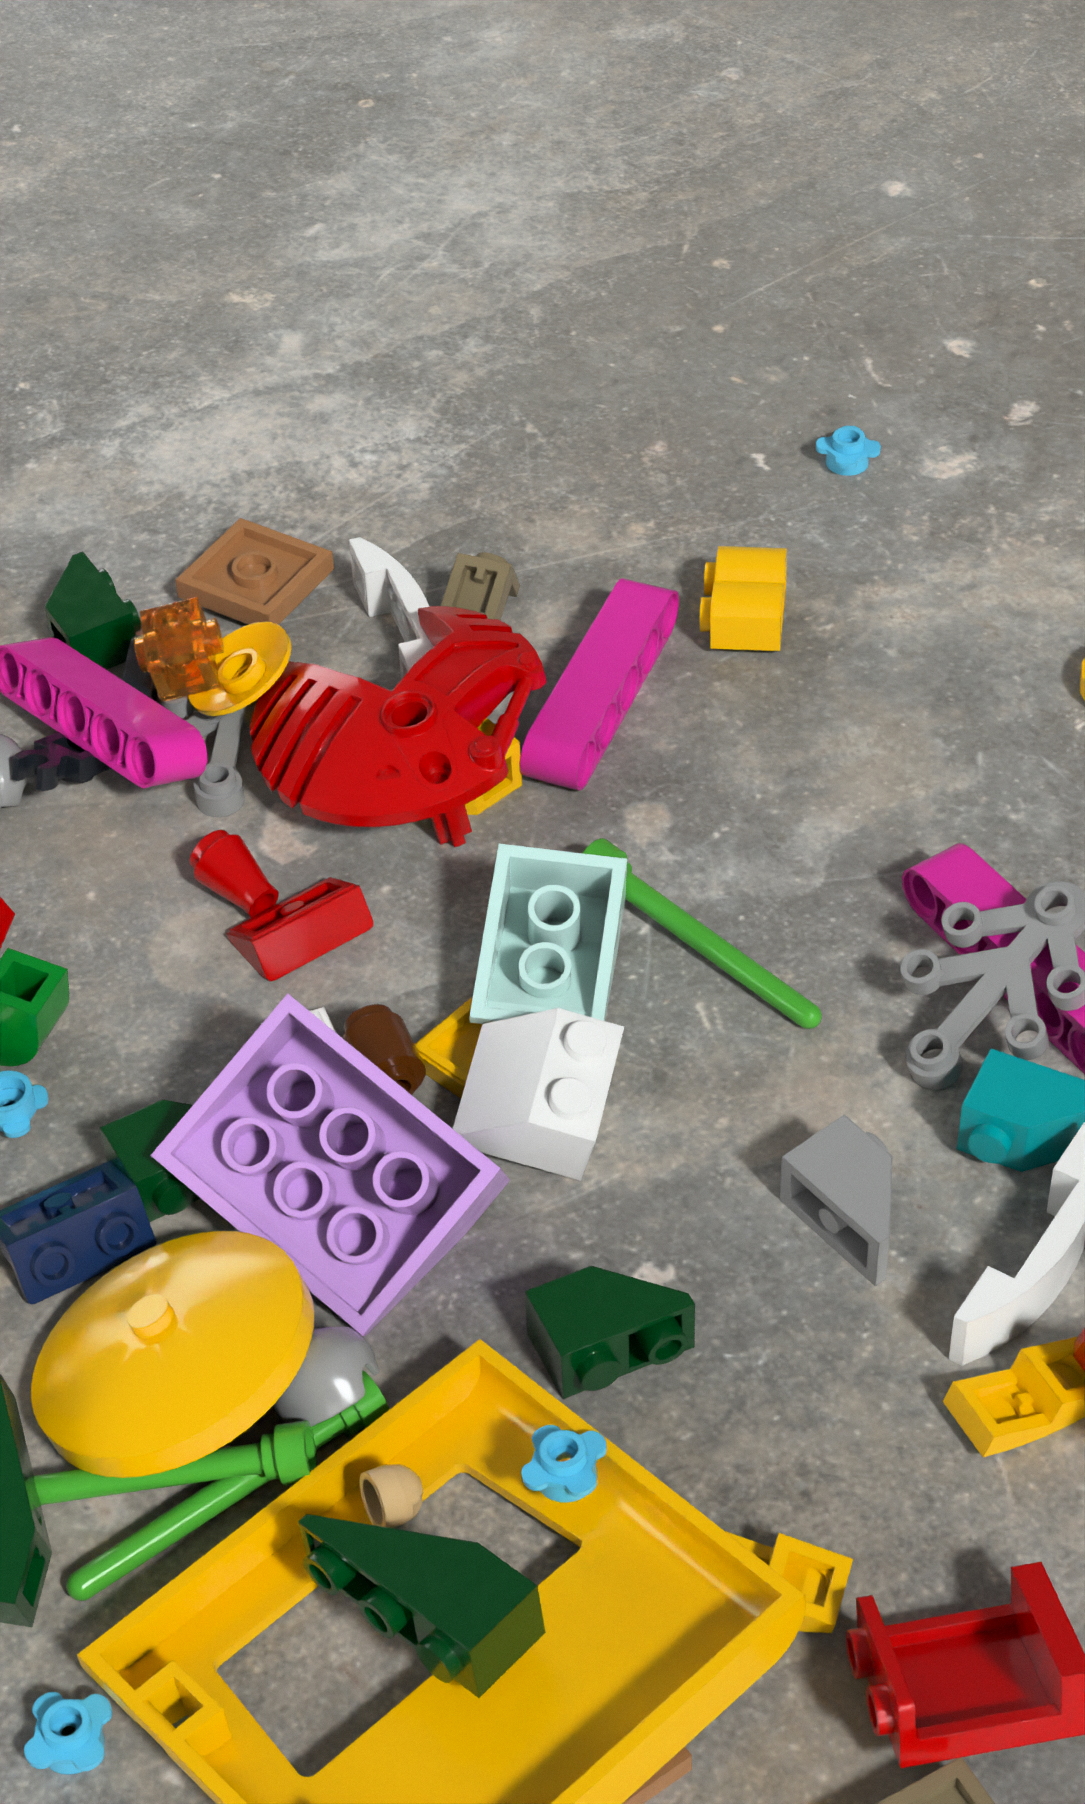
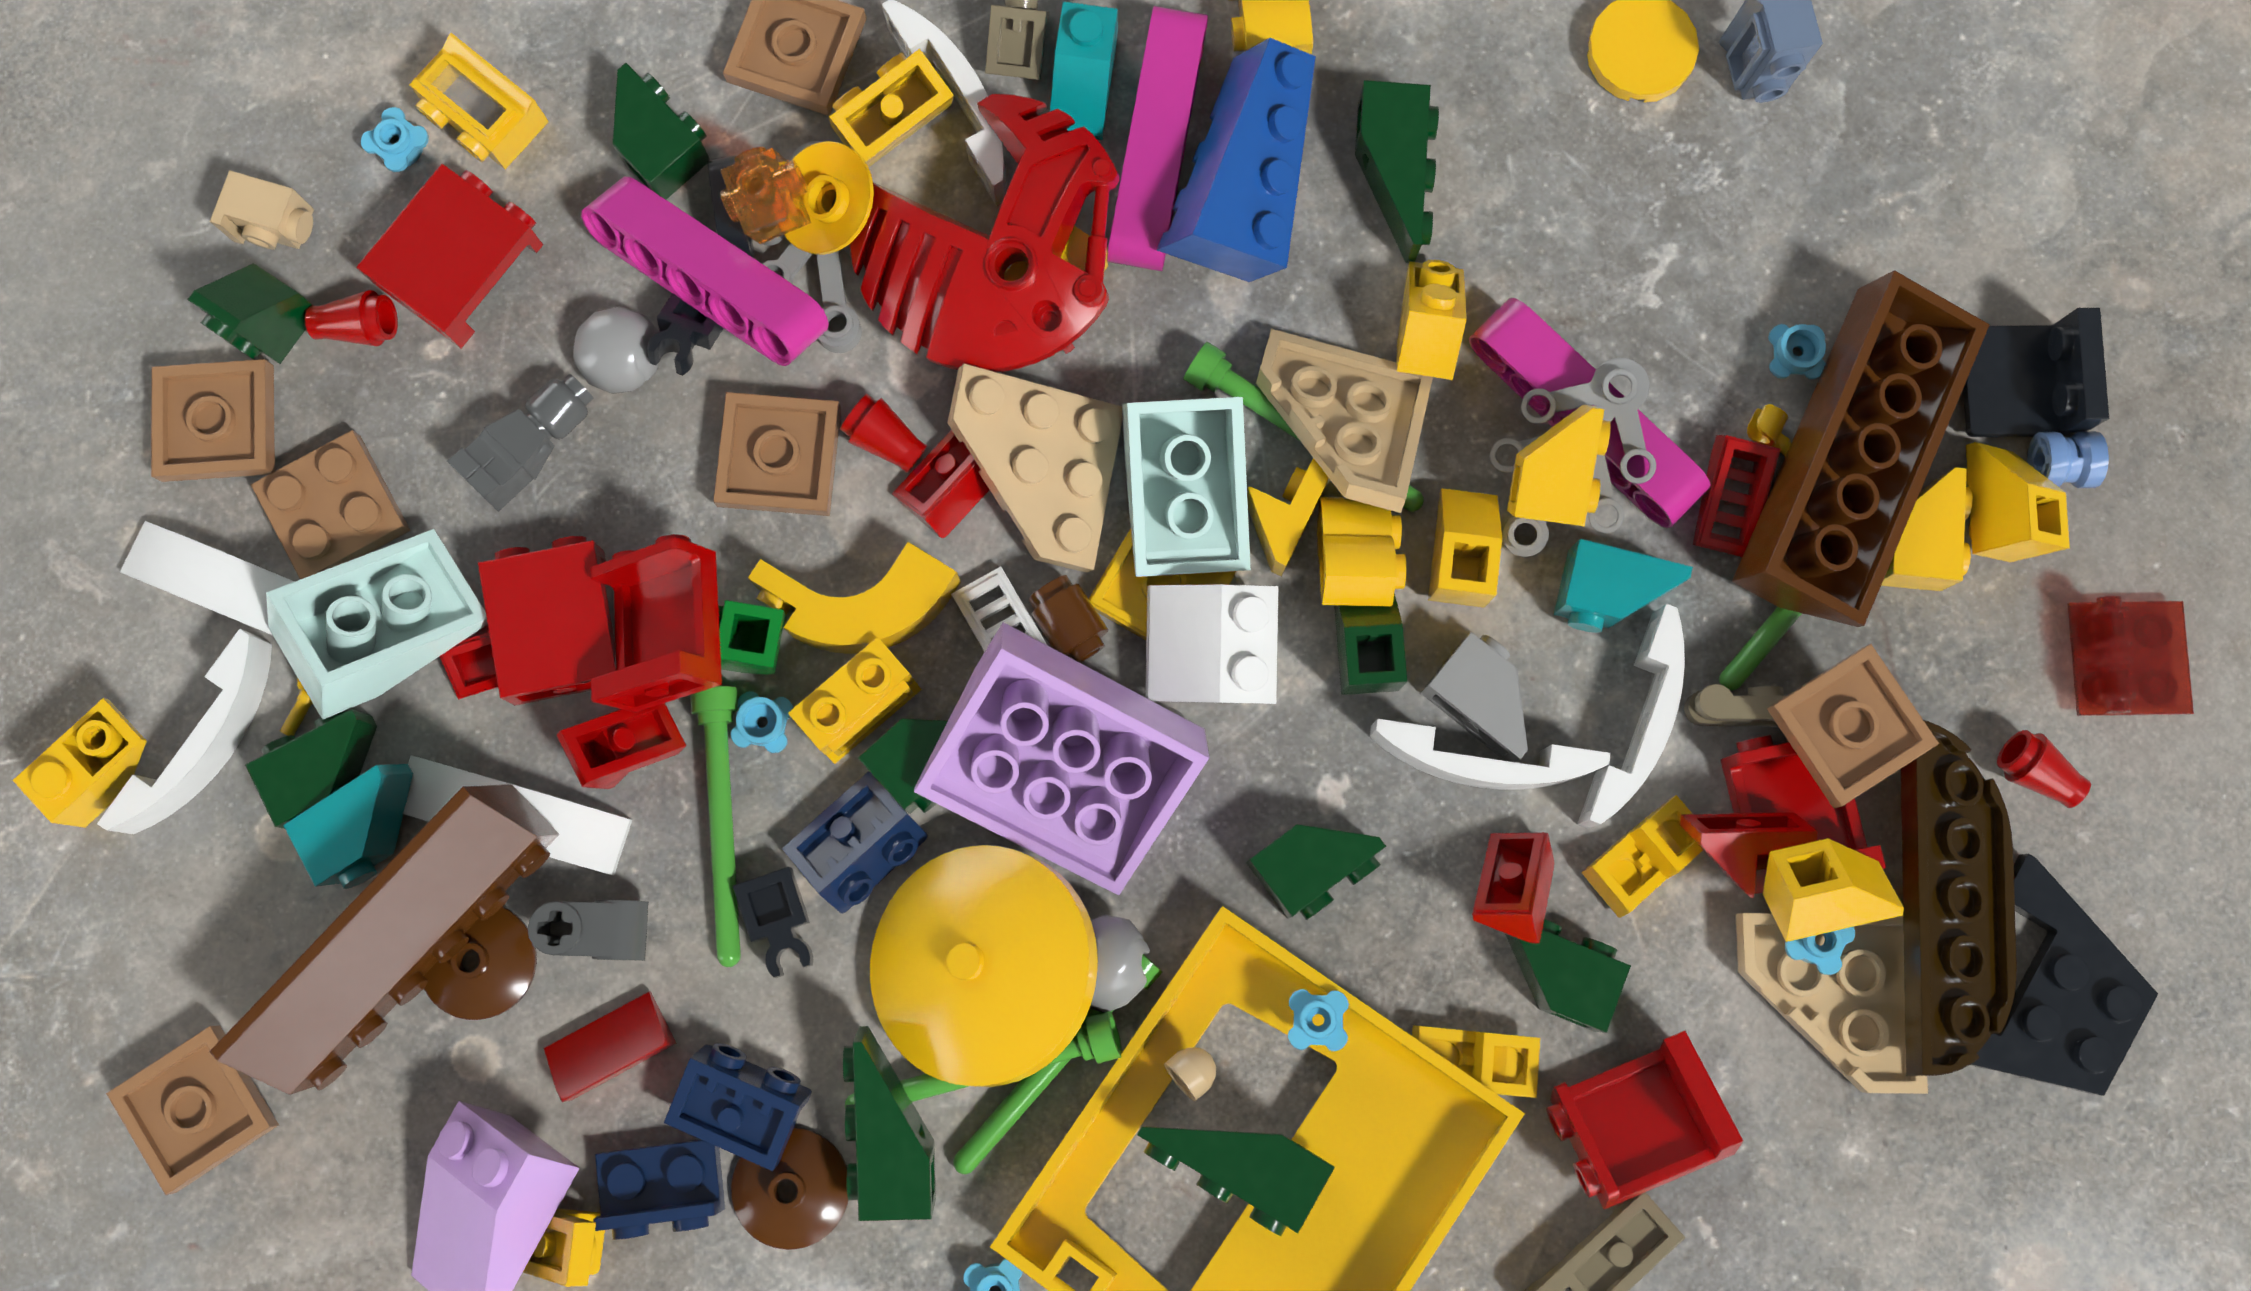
camera: 15 degrees left, 35 degrees up
(111, 1082) = (855, 700): none -> yellow window
(115, 877) = (777, 454): none -> medium nougat plate
(165, 1022) = (892, 610): none -> yellow arch
(336, 615) = (890, 108): none -> yellow brick
(396, 911) = (1042, 459): none -> tan plate
(547, 606) = (1085, 64): none -> teal slope
(662, 1003) = (1283, 524): none -> yellow slope
(679, 712) = (1248, 168): none -> blue wedge
(722, 1126) = (1370, 648): none -> dark green slope
(728, 1028) = (1358, 553): none -> yellow brick
(748, 914) = (1349, 414): none -> tan plate
(839, 1268) = (1415, 747): none -> white slope
(850, 721) = (1392, 153): none -> dark green slope
(852, 1060) = (1466, 549): none -> yellow slope
(855, 1378) = (1515, 884): none -> red slope
(859, 854) = (1431, 319): none -> yellow slope
(903, 1496) = (1571, 978): none -> dark green slope
(968, 967) = (1557, 469): none -> yellow slope

